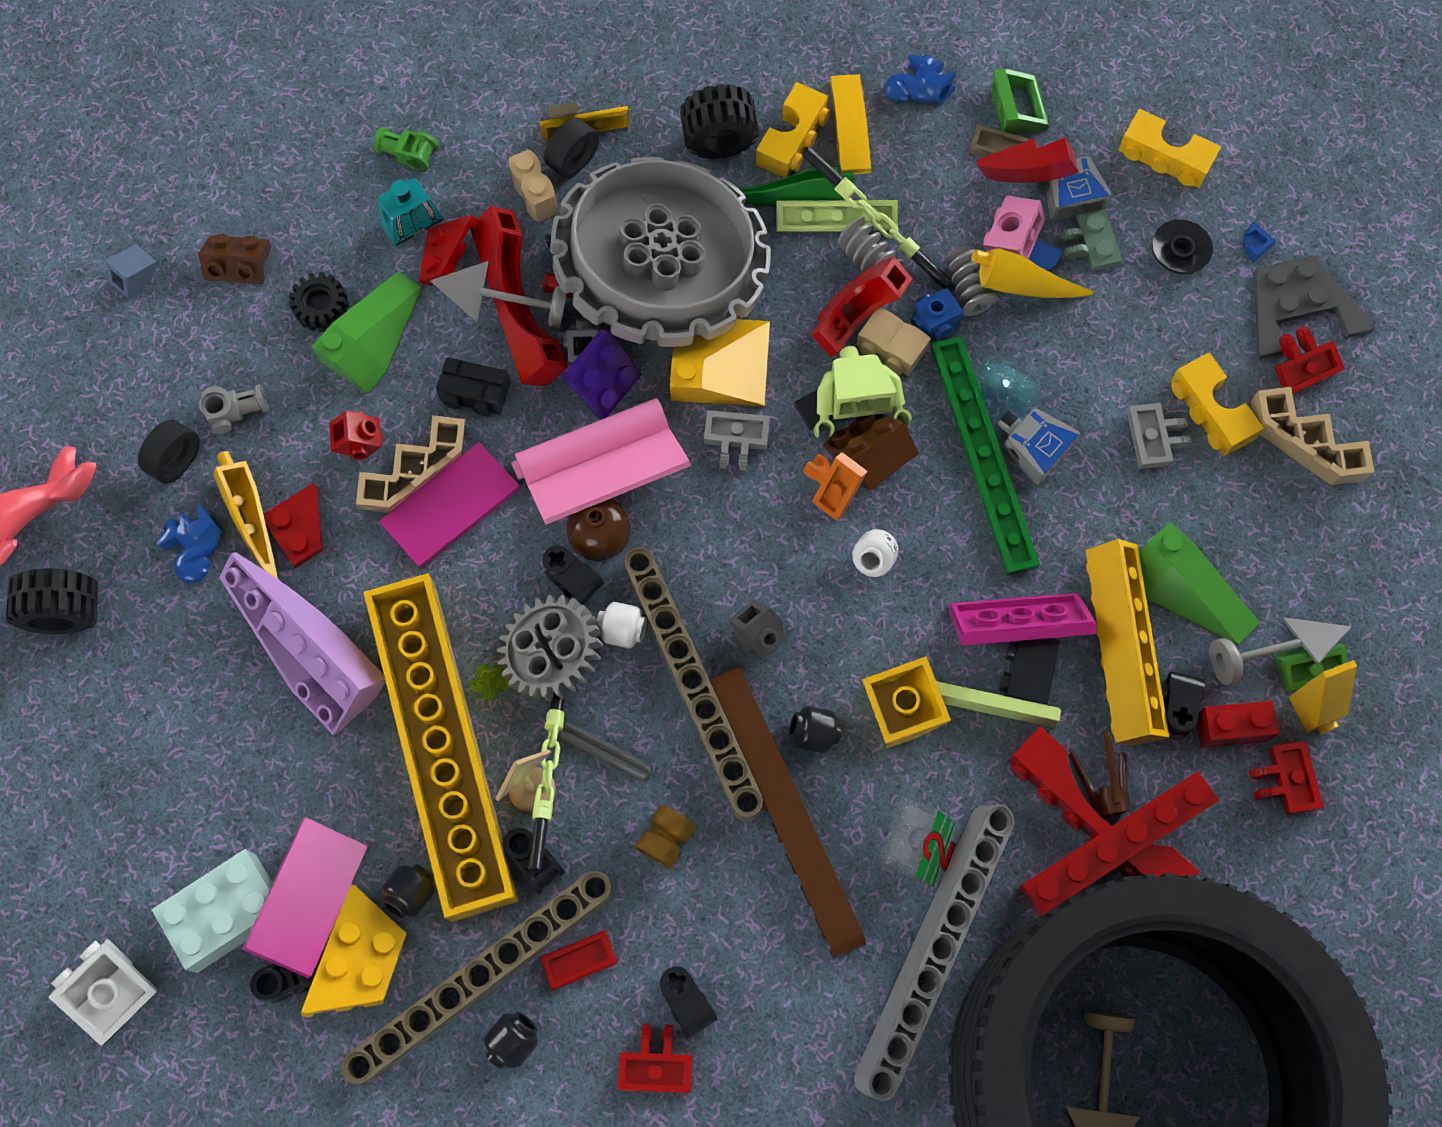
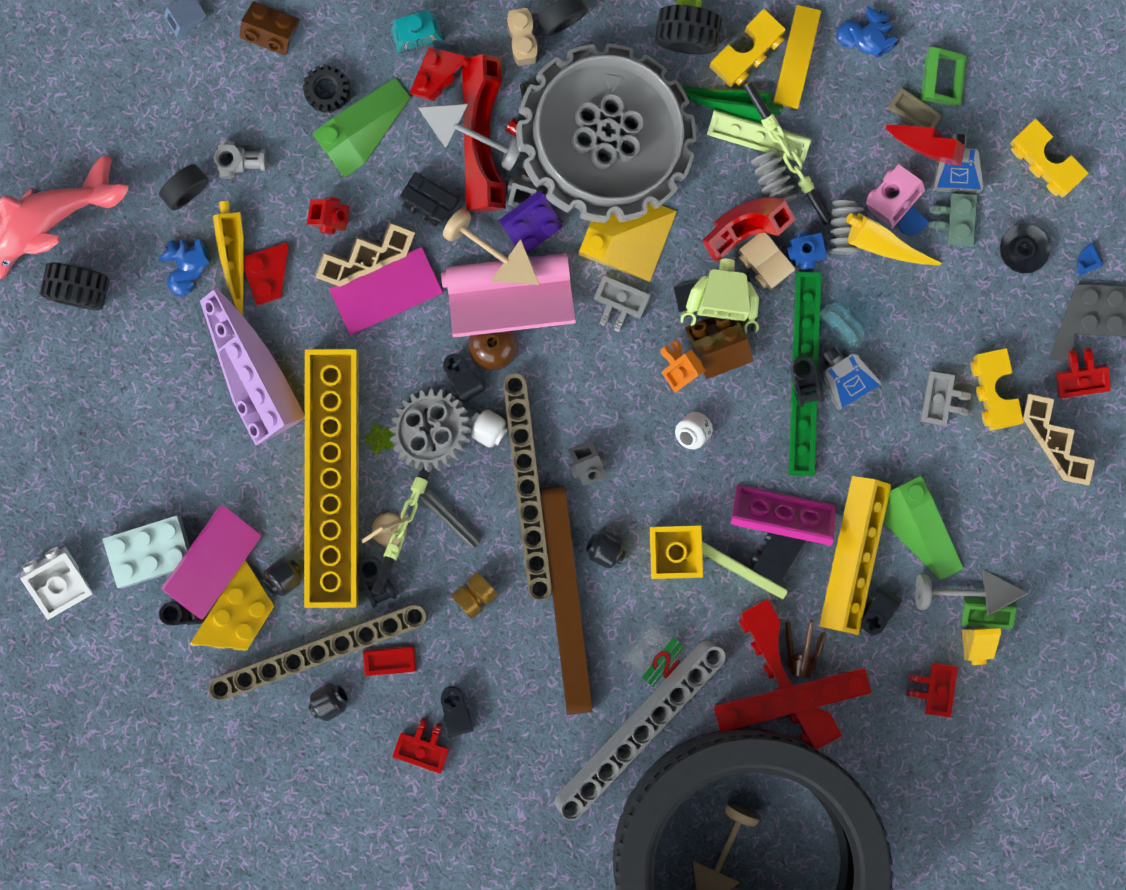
camera: 15 degrees right, 15 degrees up
(598, 426) = (515, 267): none -> tan piece
(992, 460) = (806, 383): none -> black piece
(1237, 724) = (912, 639): red brick -> none

